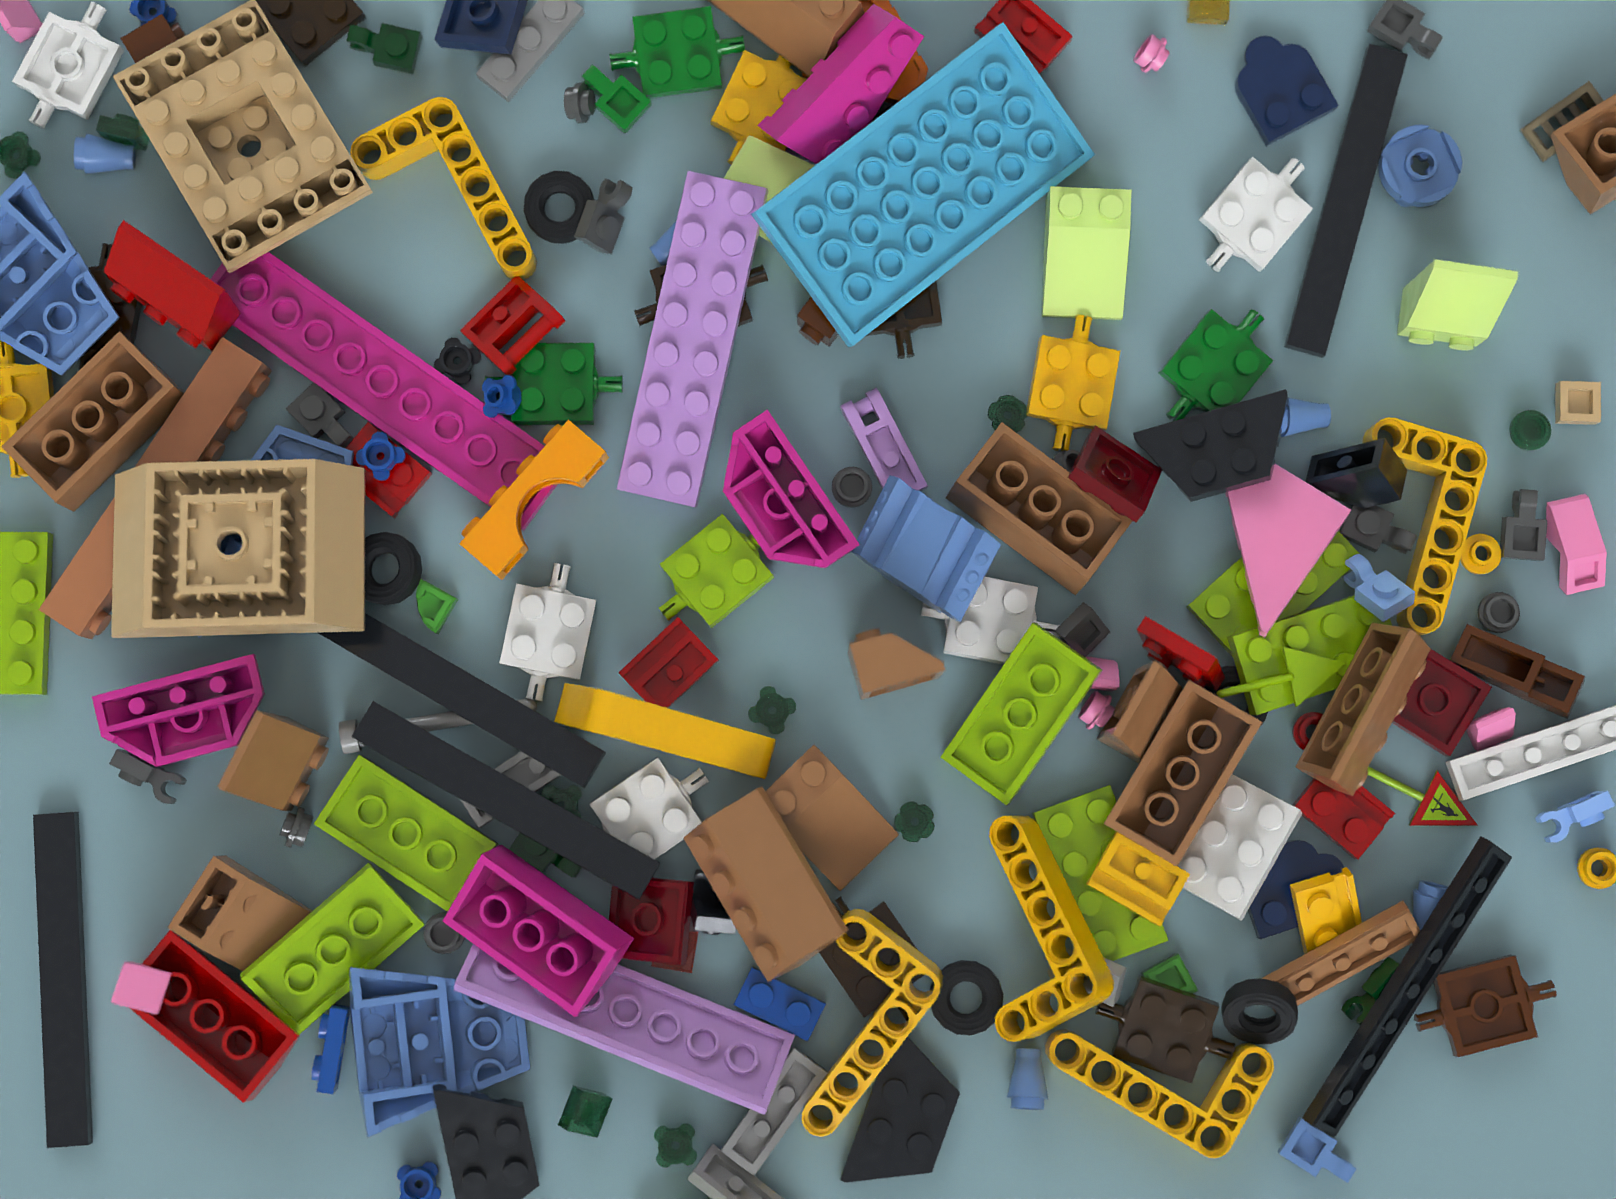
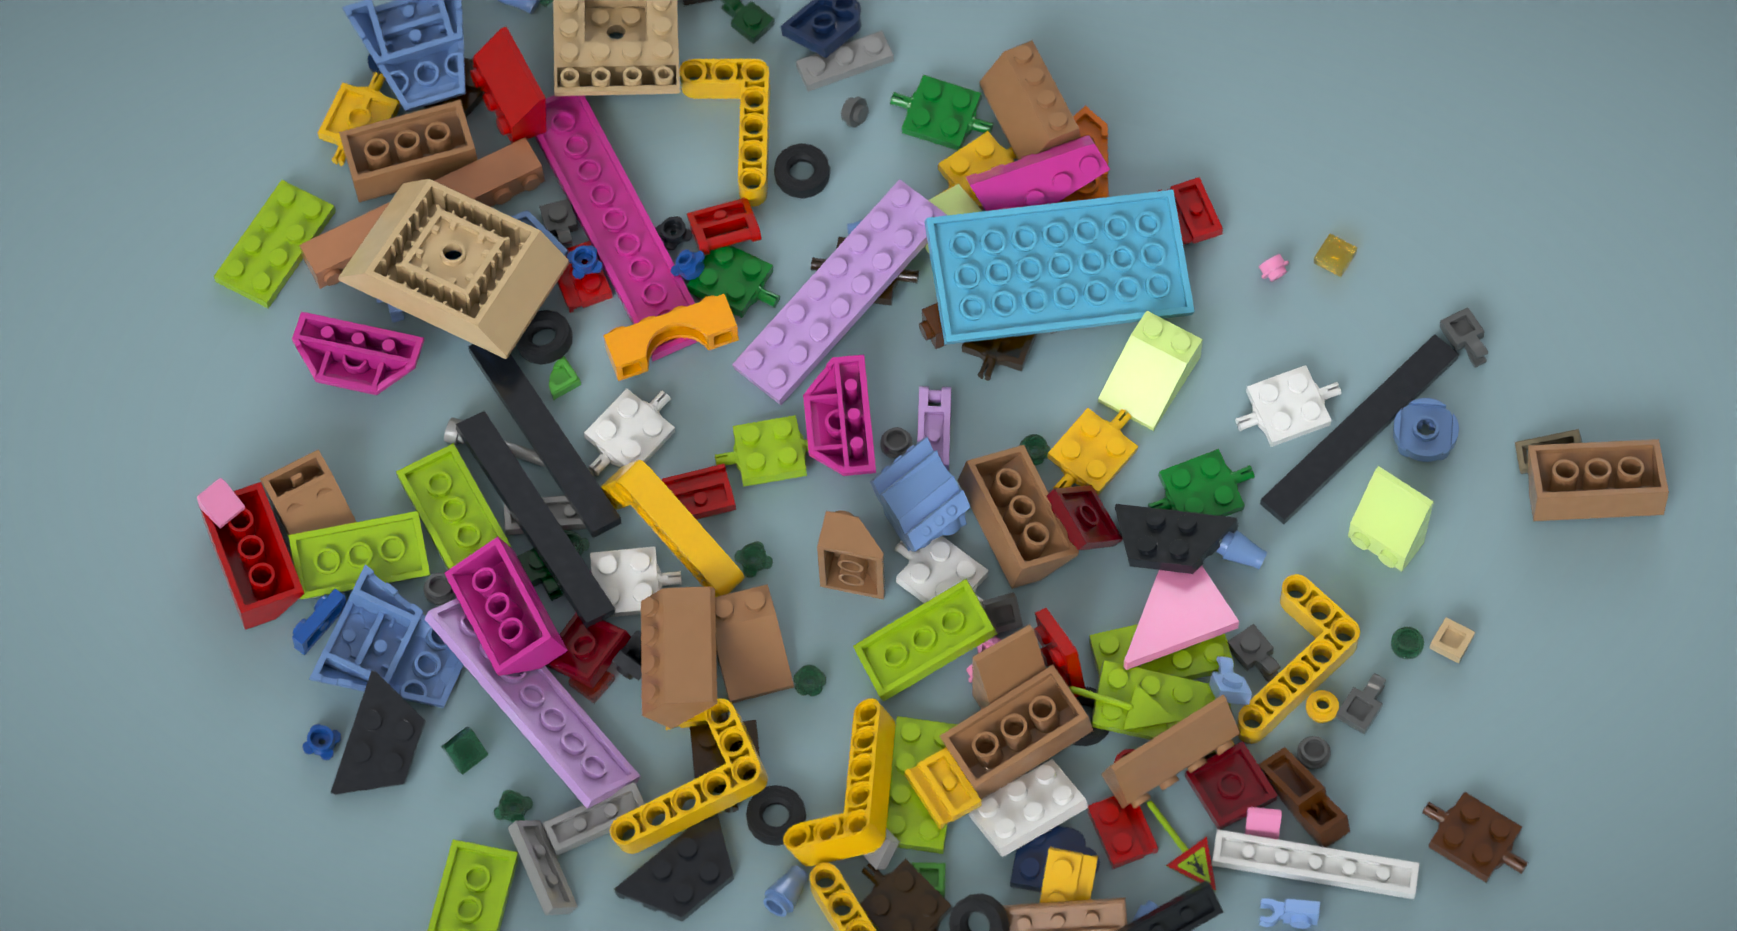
camera: 30 degrees right, 20 degrees down
(62, 980) = (165, 490): black tile -> none
(138, 770) = (301, 381): dark grey plate -> none
(274, 761) = (395, 410): medium nougat slope -> none
(296, 827) = (382, 469): dark grey plate -> none
(600, 221) = (824, 189): dark grey plate -> none
(618, 100) = (881, 122): green plate -> none
(780, 1004) = (642, 753): blue plate -> none
(1281, 88) = (1355, 335): dark blue plate -> none
(1359, 474) = (1262, 606): black slope -> none
(1578, 539) = (1395, 732): bright pink slope -> none

